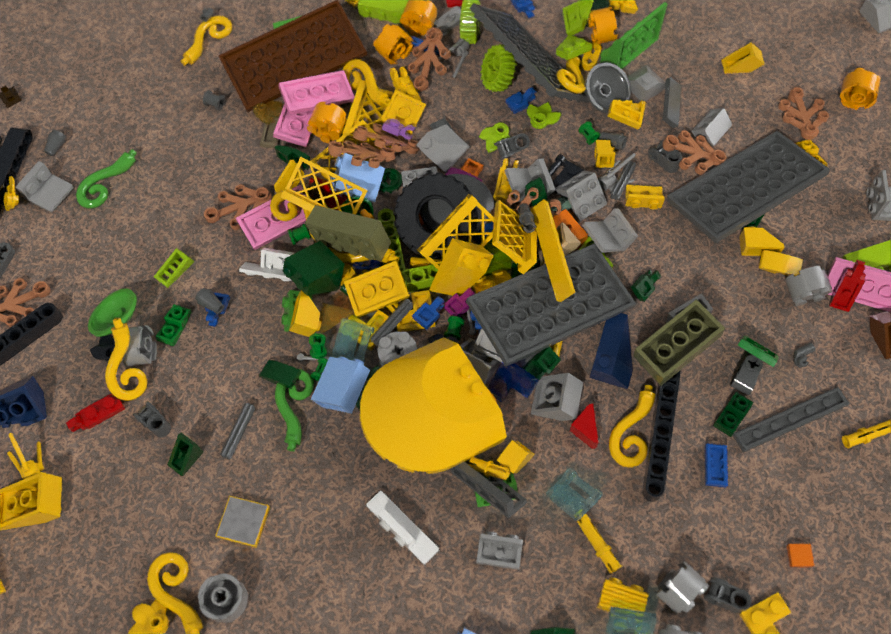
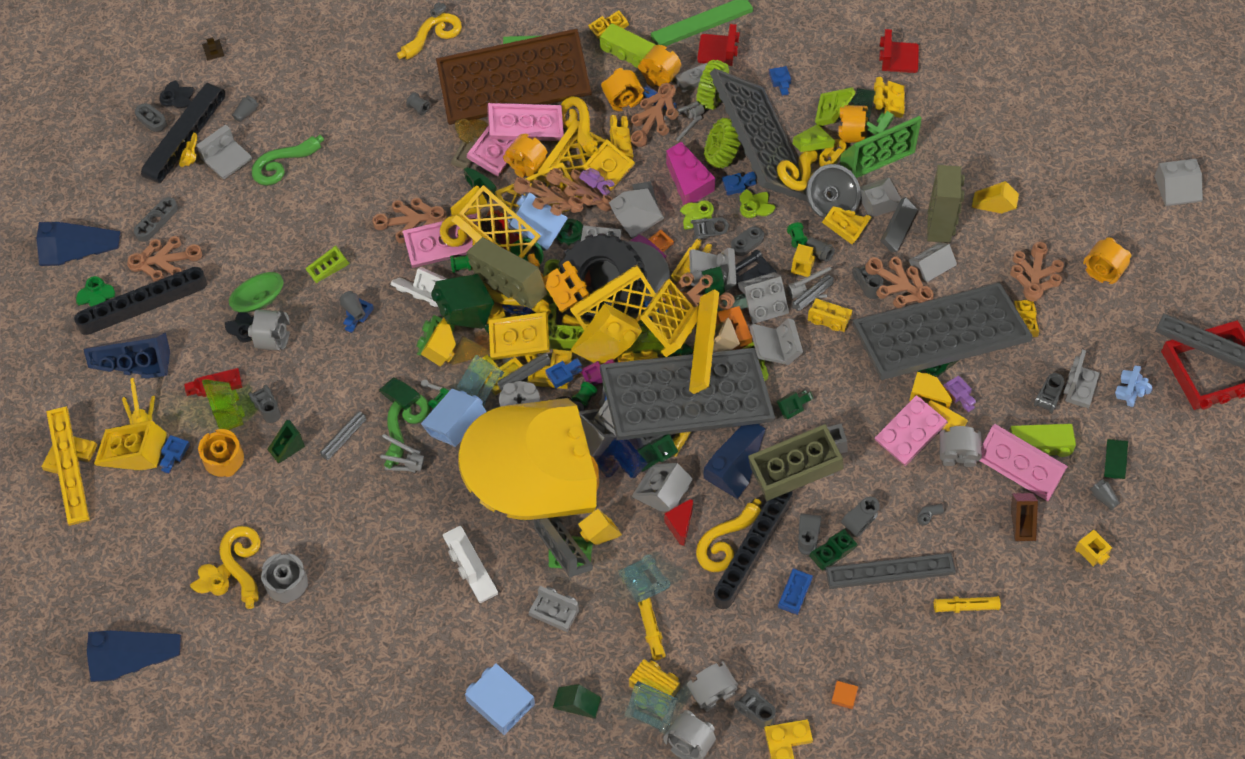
camera: 15 degrees right, 5 degrees down
(73, 493) = (173, 450): none -> blue plate
(110, 433) = (223, 404): none -> clear neon green slope
(122, 339) = (259, 318): yellow plant -> none
(122, 484) = (221, 453): none -> light orange brick
(174, 324) = (313, 318): green slope -> none
(242, 521) = (322, 518): flat silver tile -> none
(314, 439) = (413, 461): none -> light grey plant
(317, 346) = (444, 376): green bush -> none
(403, 236) = (559, 289): none -> light orange plate
(477, 103) = (689, 174): none -> dark pink wedge
(489, 468) = (569, 530): yellow axle -> none
(526, 218) = (691, 304): dark grey pin -> none
(548, 148) = (748, 240): none -> dark grey plate
(627, 19) = (884, 121): none -> bright green bracket
(706, 404) = (808, 531): none -> dark grey piece
(712, 72) = (945, 203): none -> olive brick
(757, 282) = (911, 430): none -> bright pink plate
(758, 350) = (880, 495): green tile -> none
(784, 235) = (960, 391): none -> medium lavender plate
(849, 287) = (999, 458): red hinge -> none
(861, 216) = (1048, 395): none -> dark grey piece

